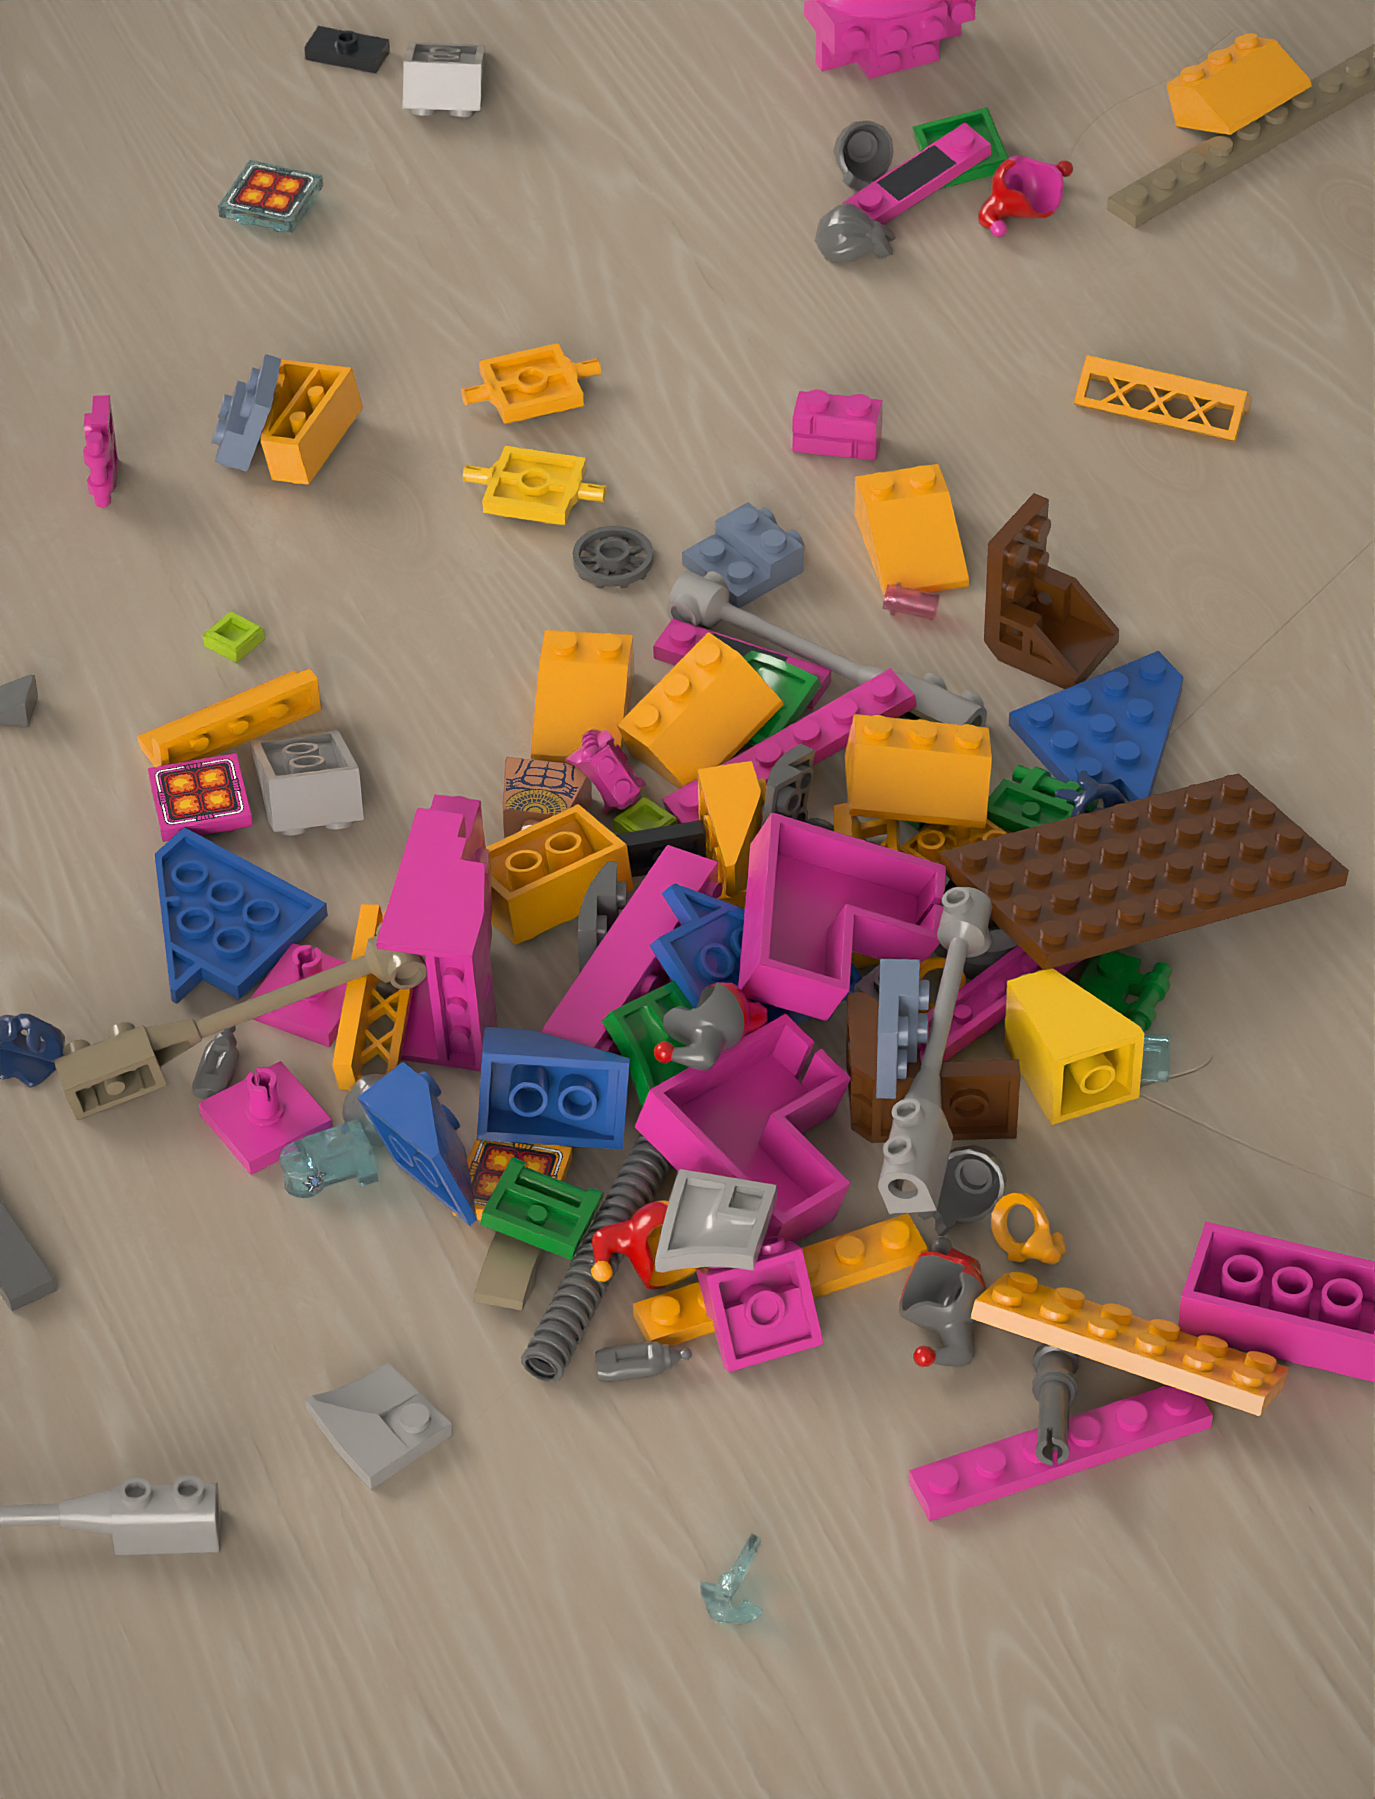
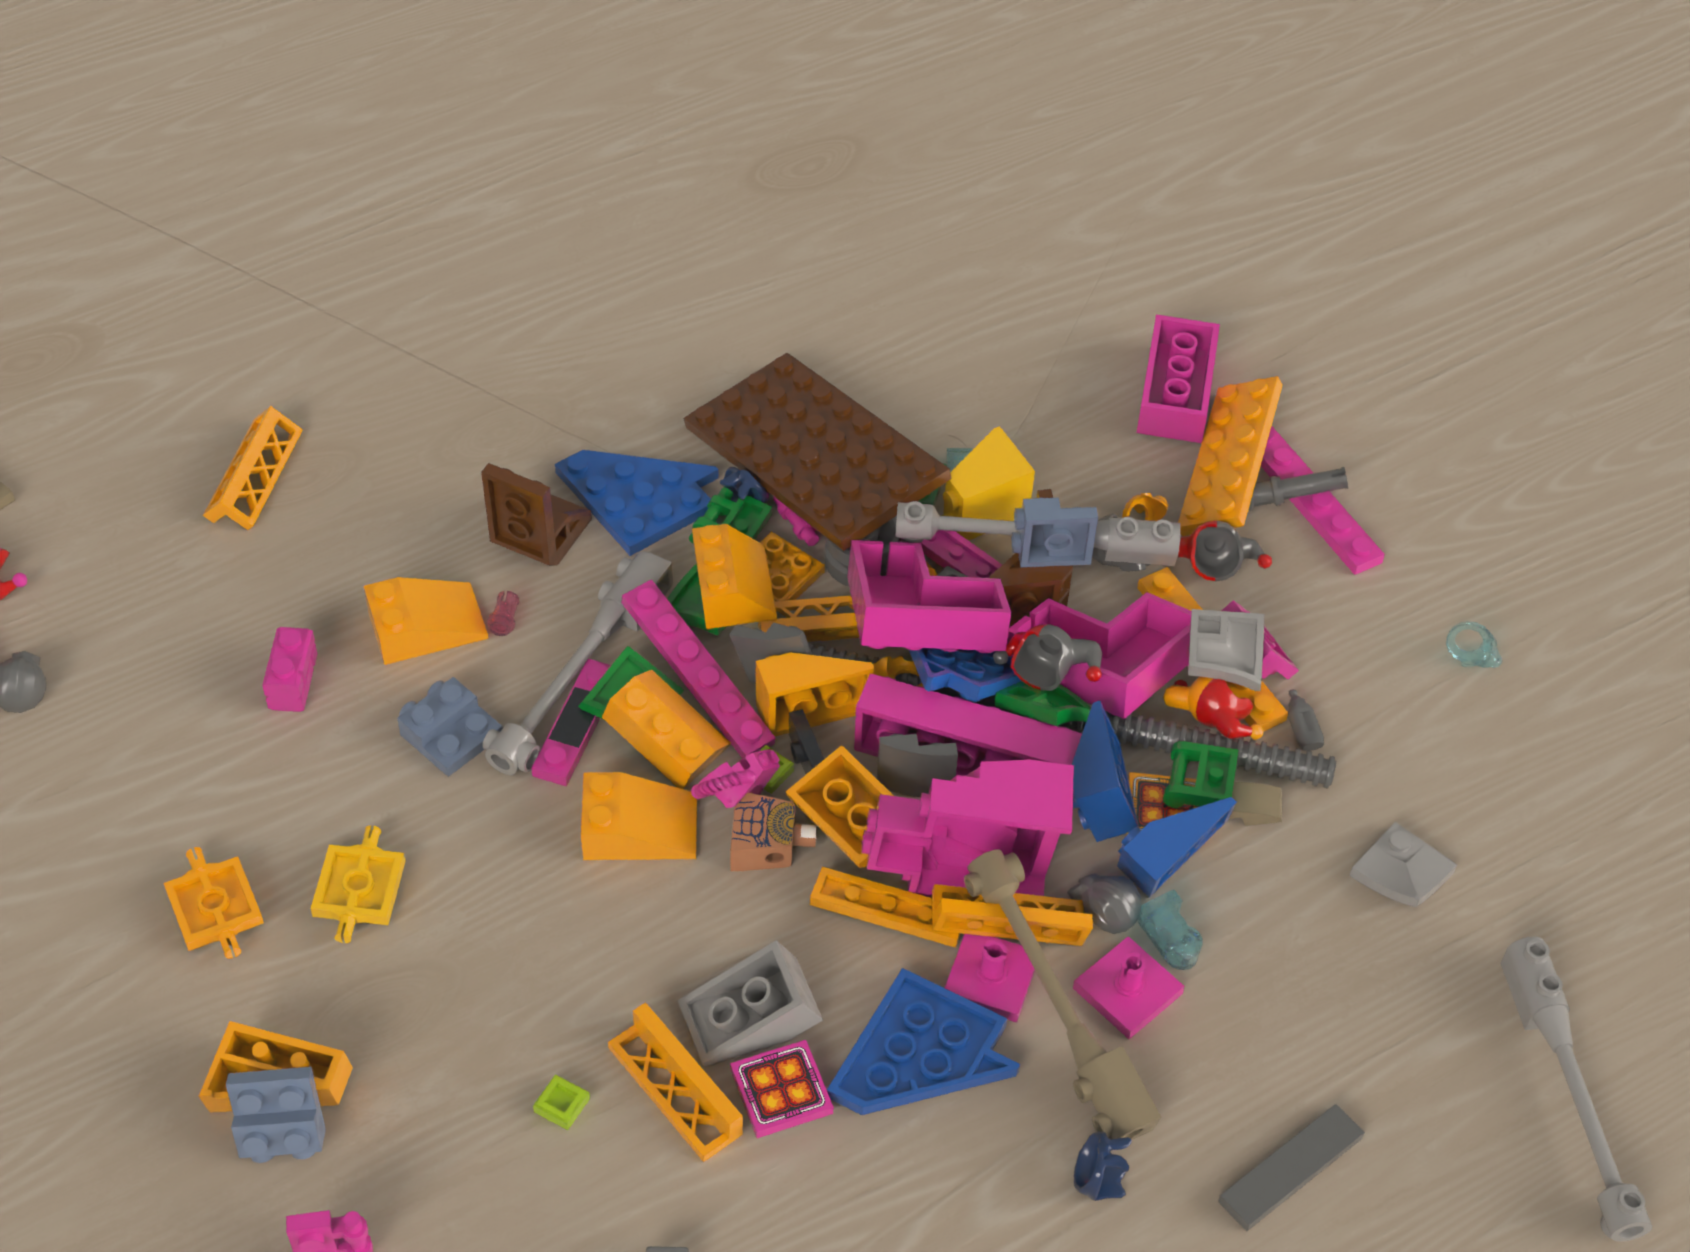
camera: 100 degrees left, 5 degrees up
(216, 1065) = (1100, 1027): dark grey piece -> none
(613, 556) = (445, 822): dark grey wheel -> none

